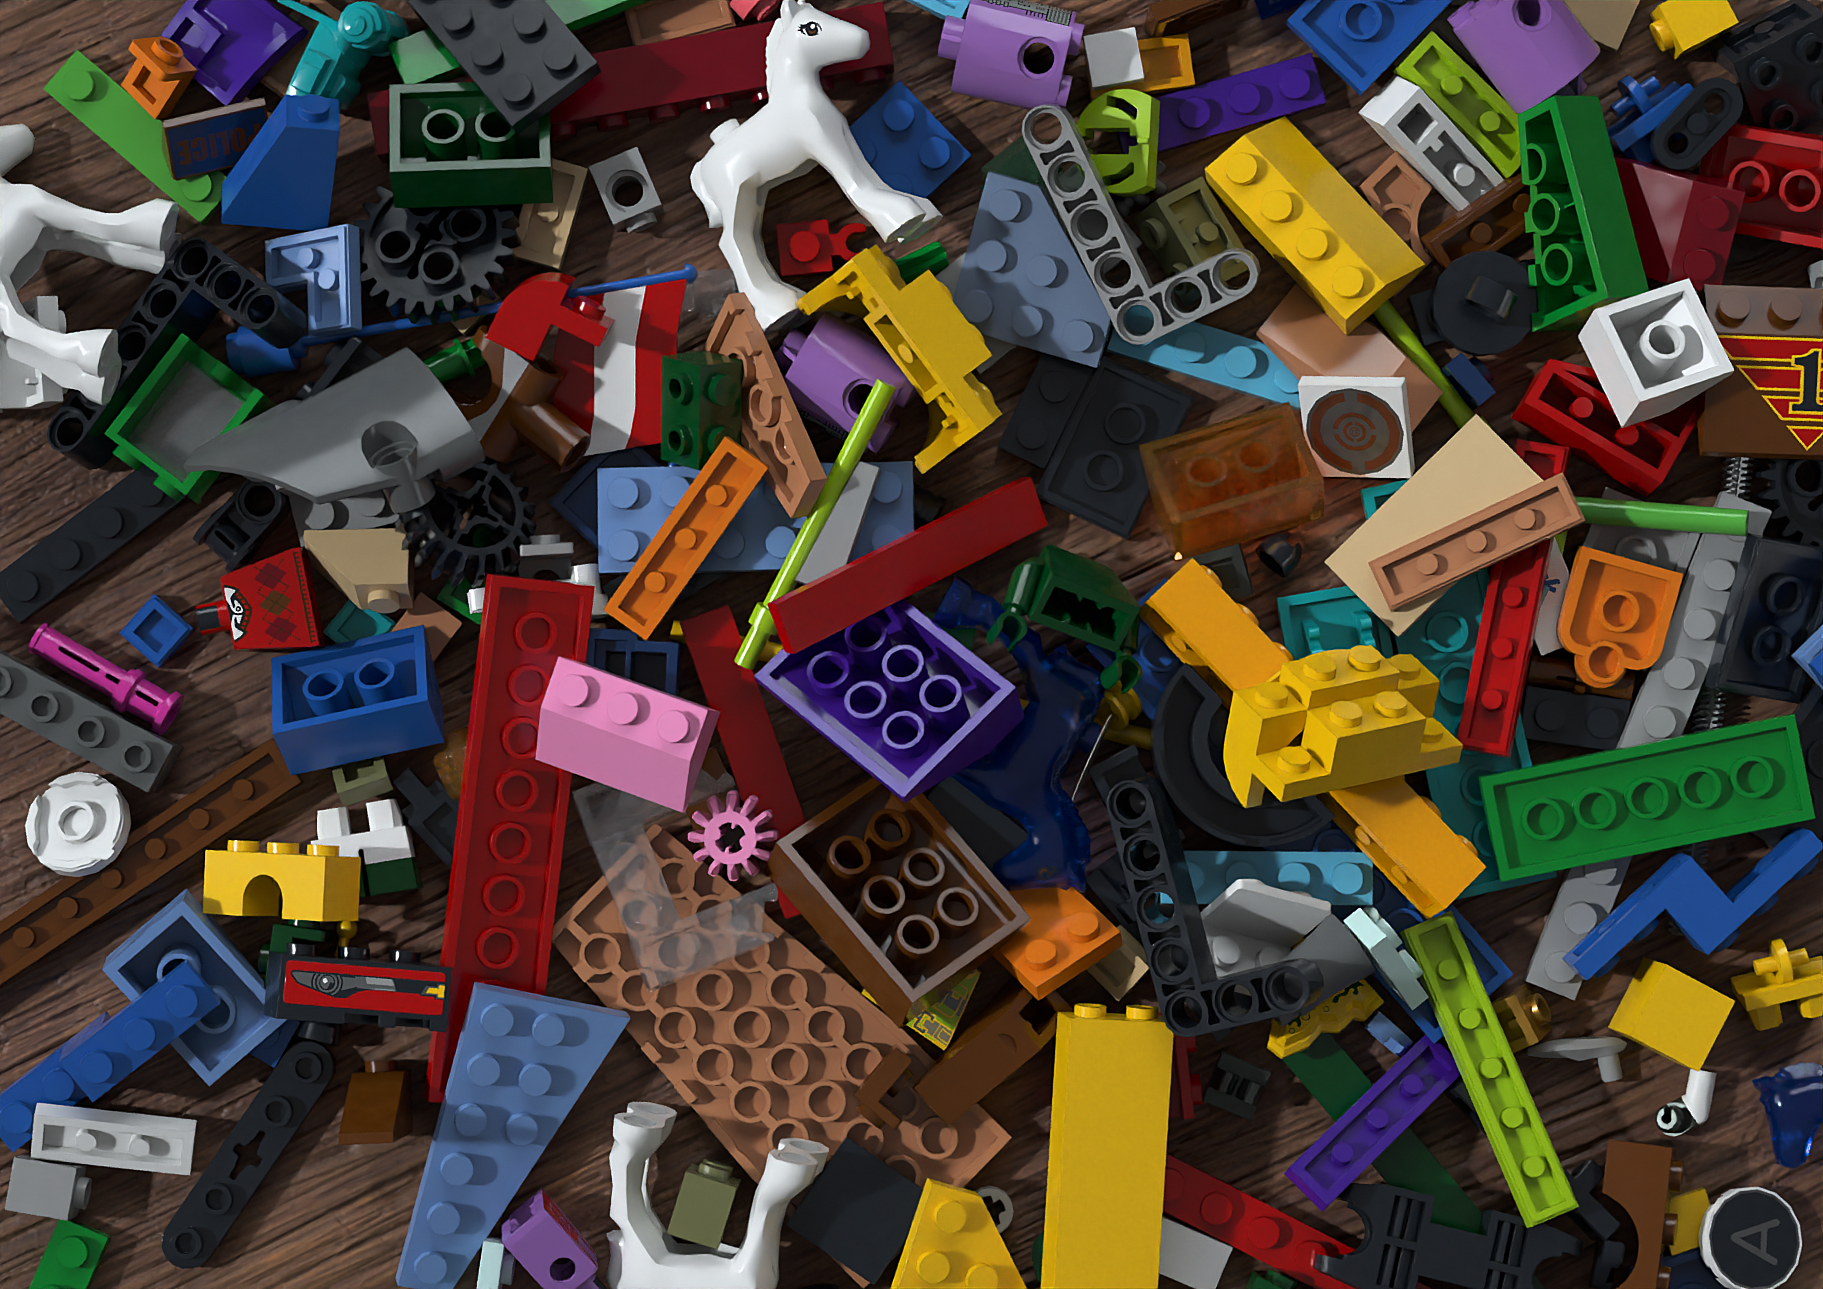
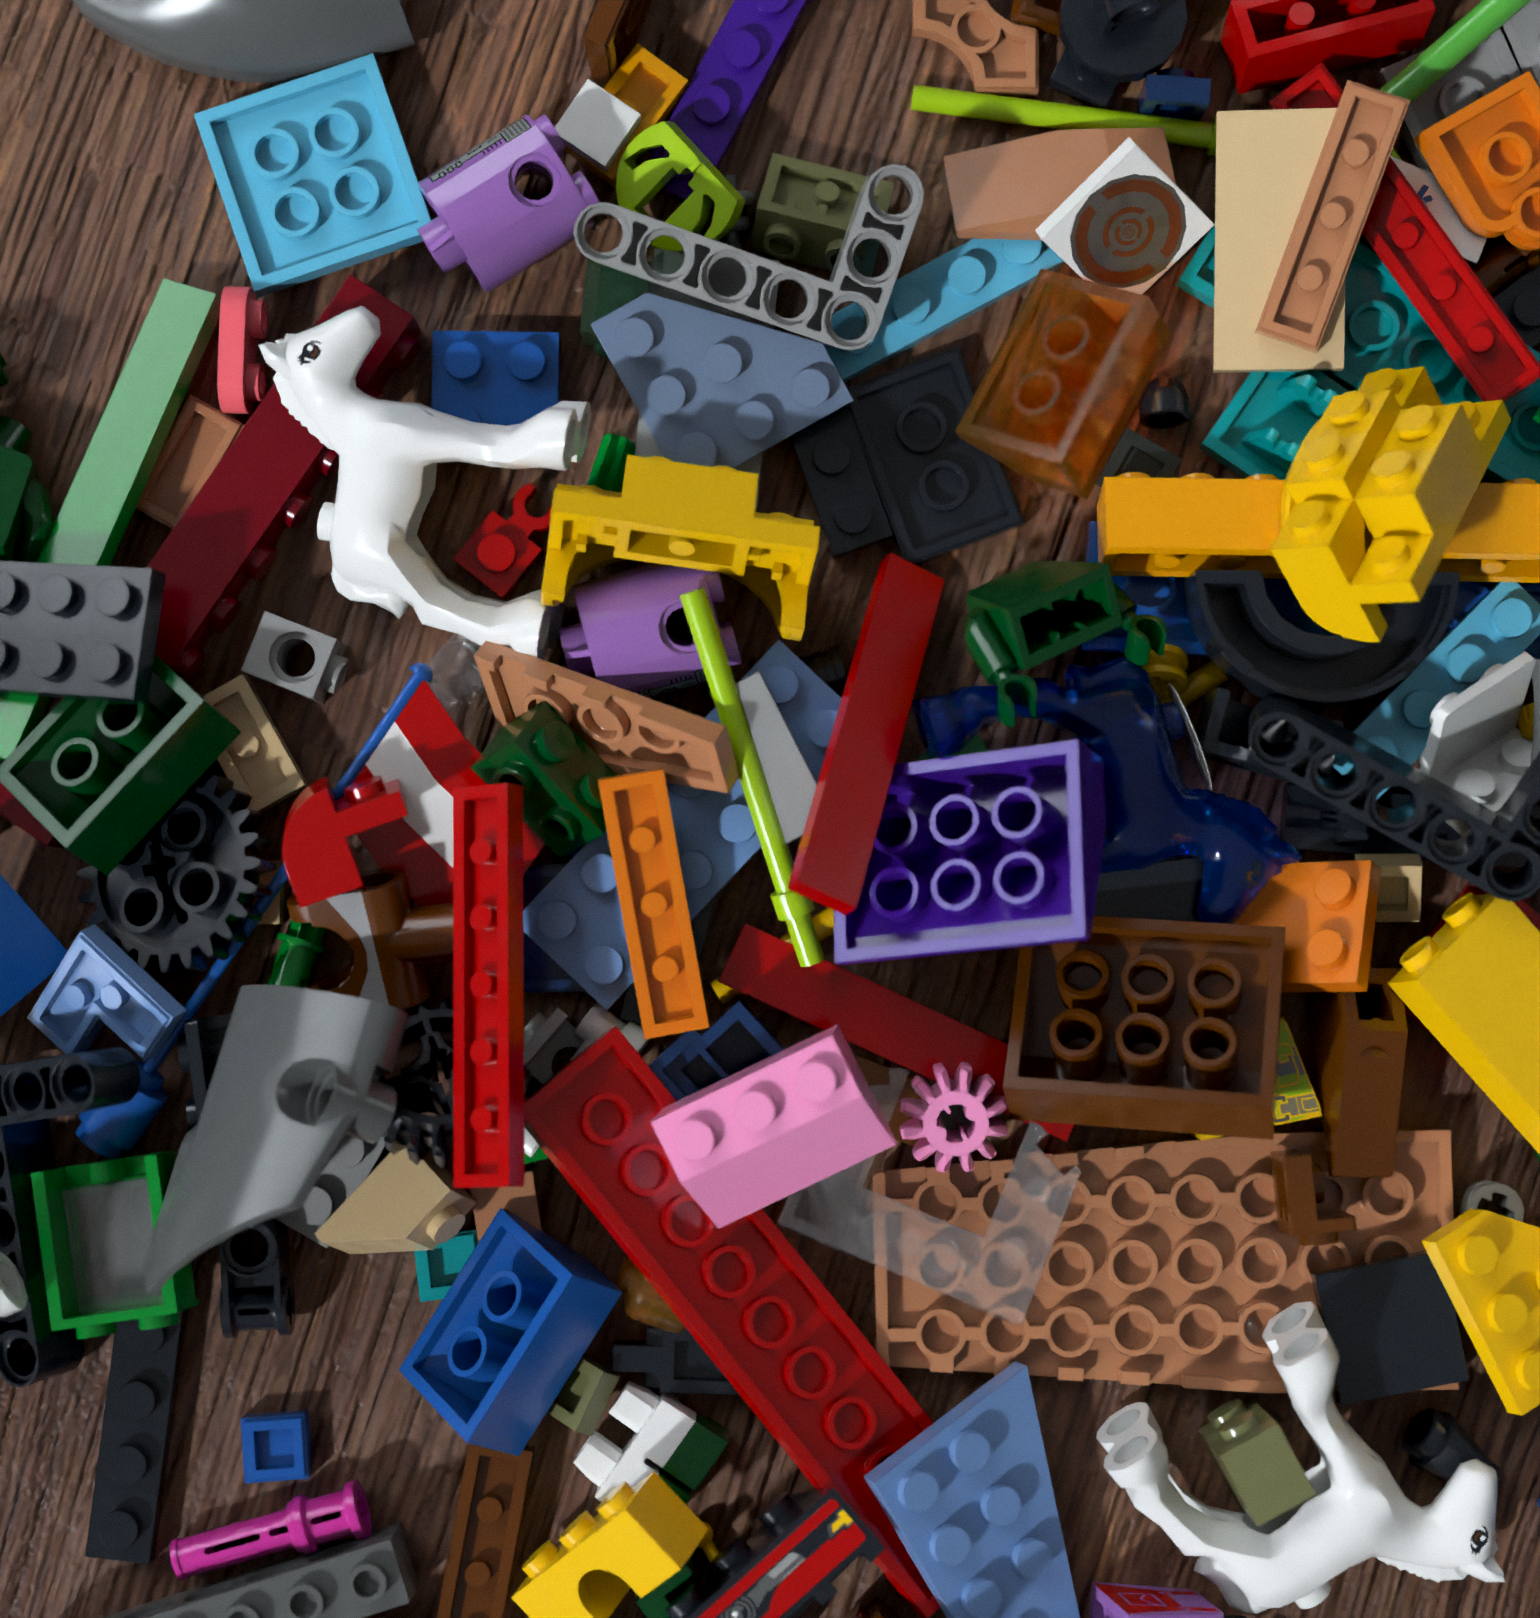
camera: 50 degrees left, 0 degrees up
(267, 605) = (349, 1329): red torso -> none
(546, 489) = (488, 986): none -> red plate
(1312, 222) = (908, 97): yellow slope -> none

